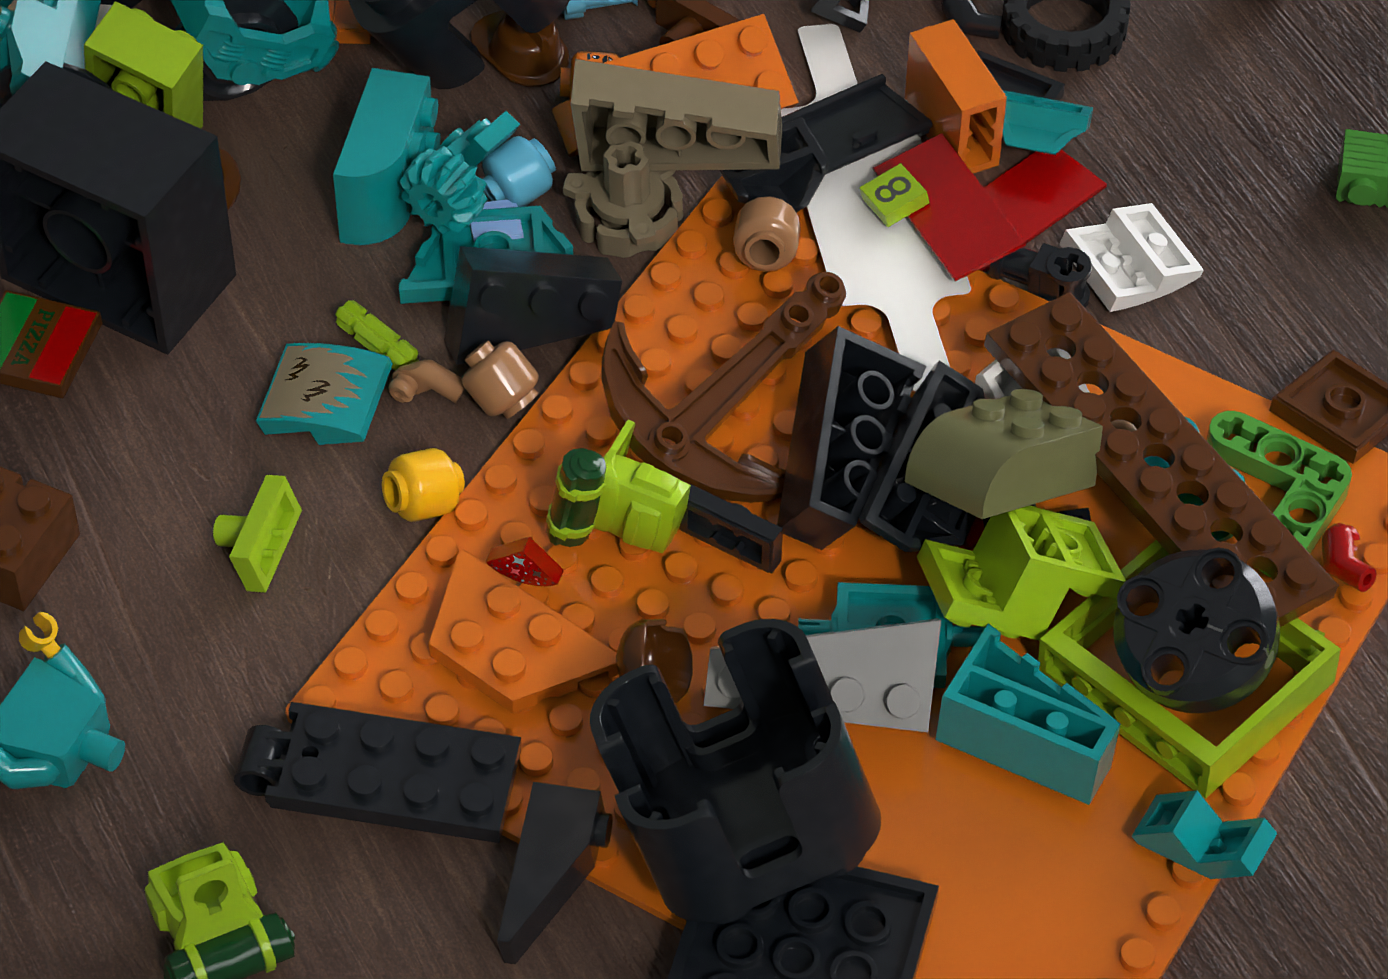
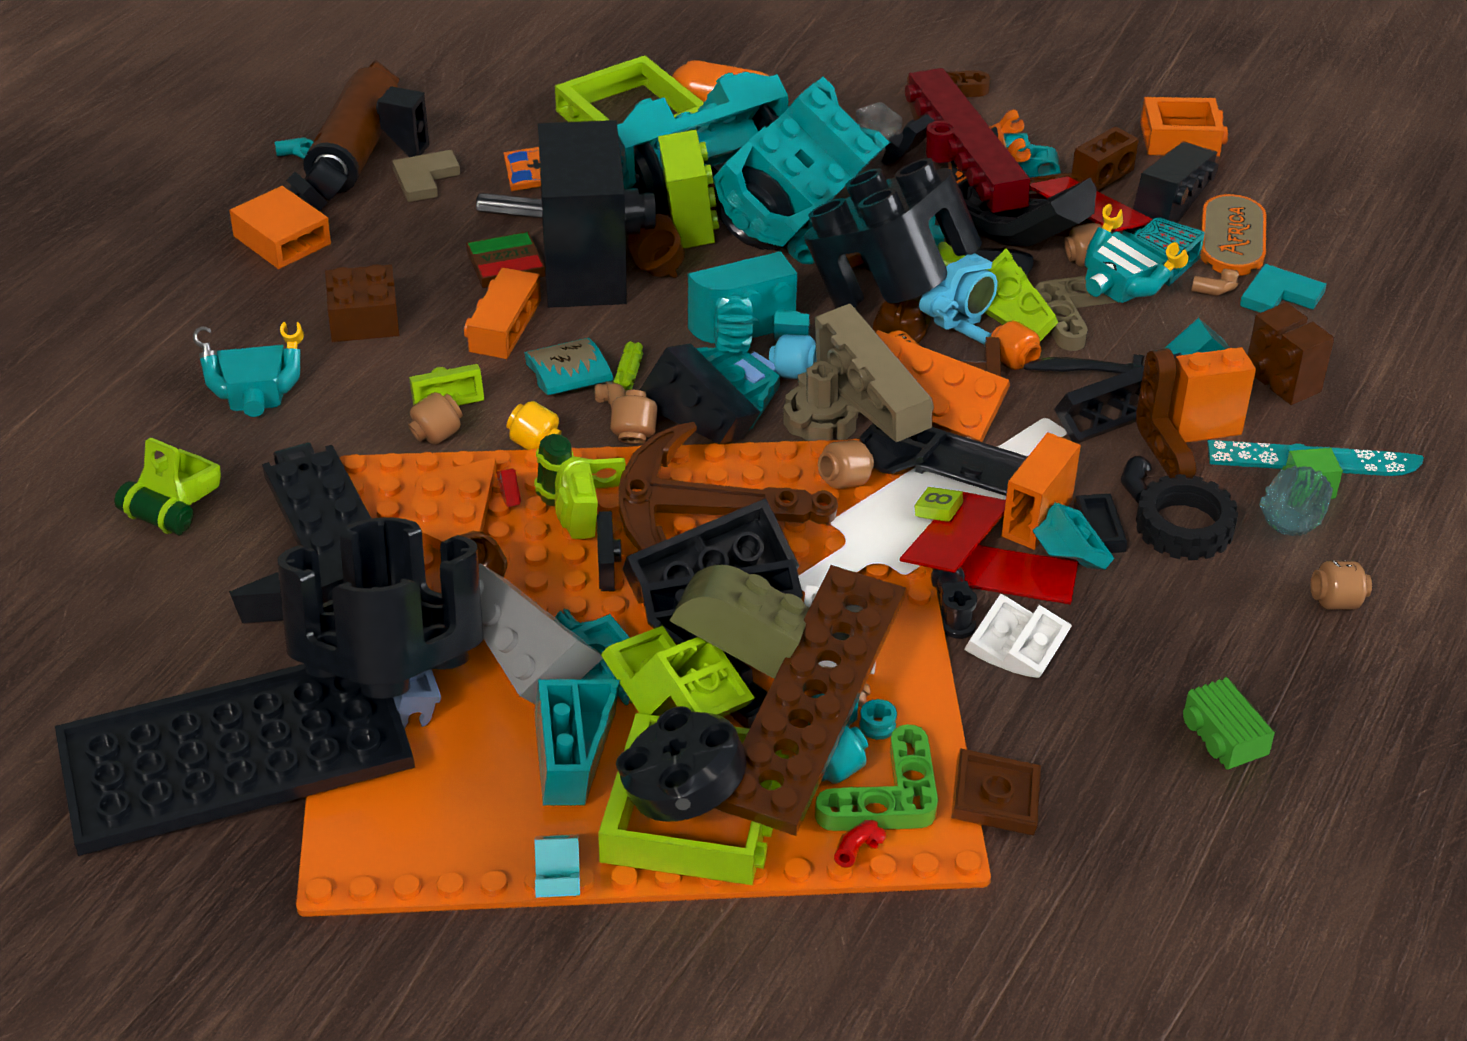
camera: 55 degrees right, 10 degrees down
(161, 400) = (503, 313): none -> orange brick
(316, 574) = (435, 418): none -> medium nougat head

